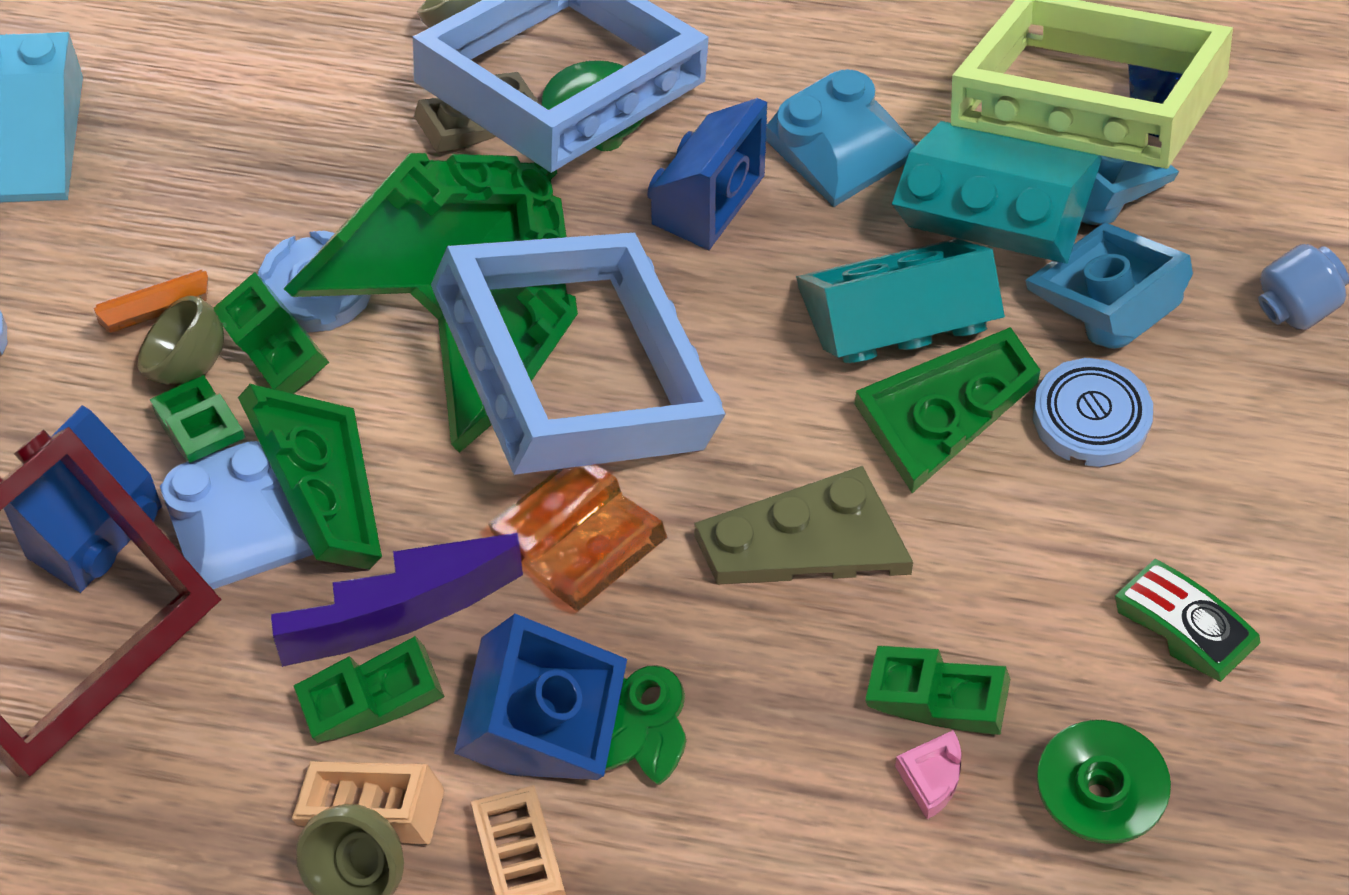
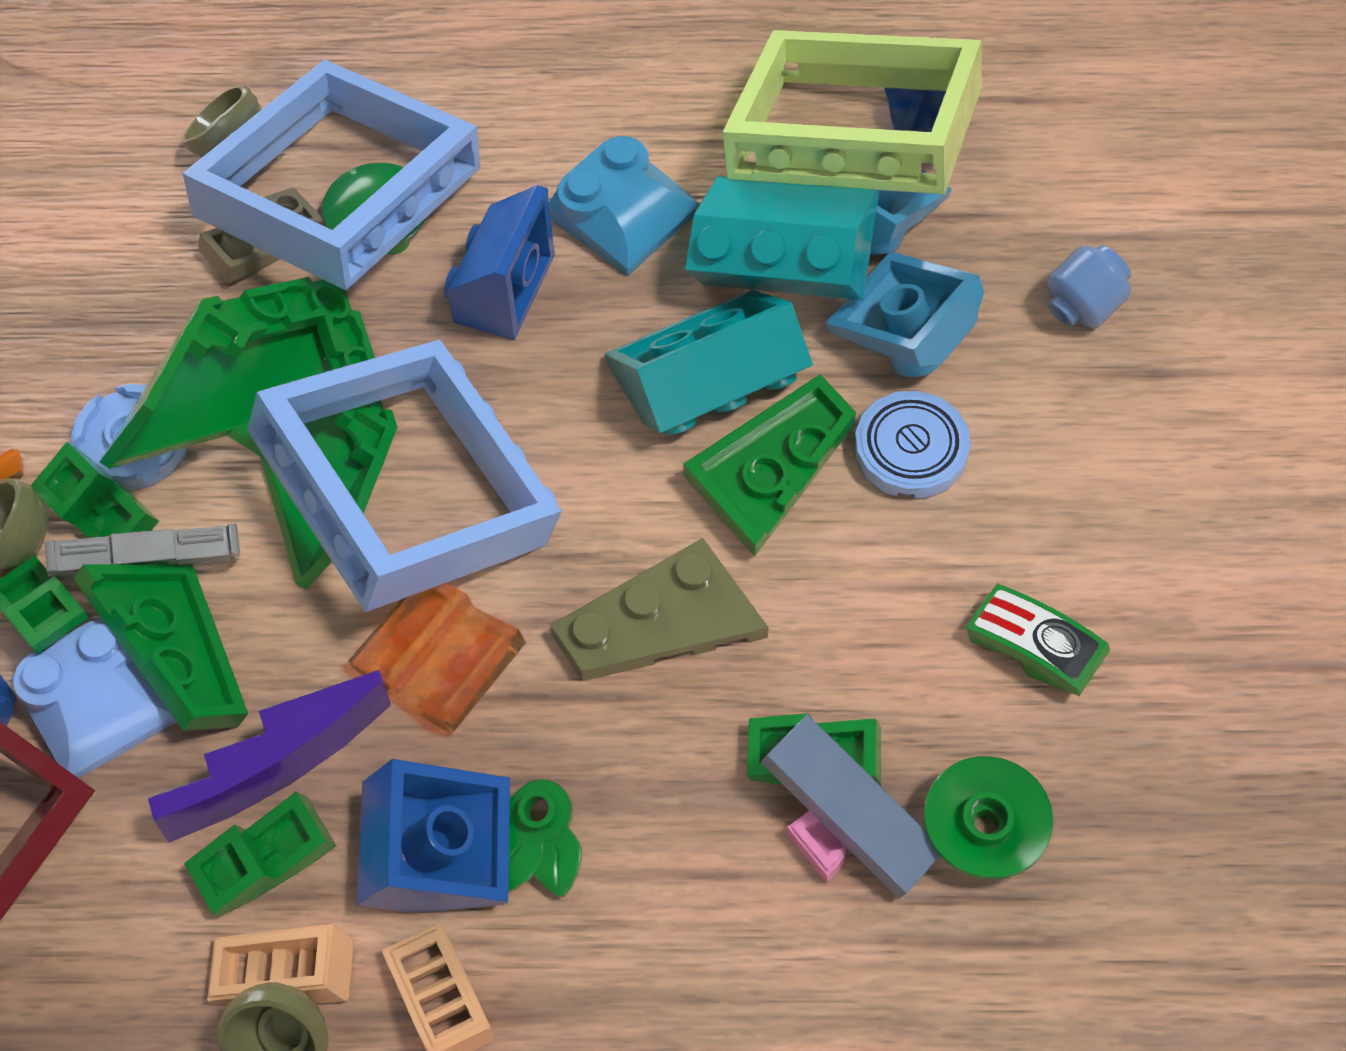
camera: 10 degrees left, 5 degrees up
(354, 389) = (164, 546): none -> light grey piece
(965, 745) = (852, 806): none -> sand blue tile

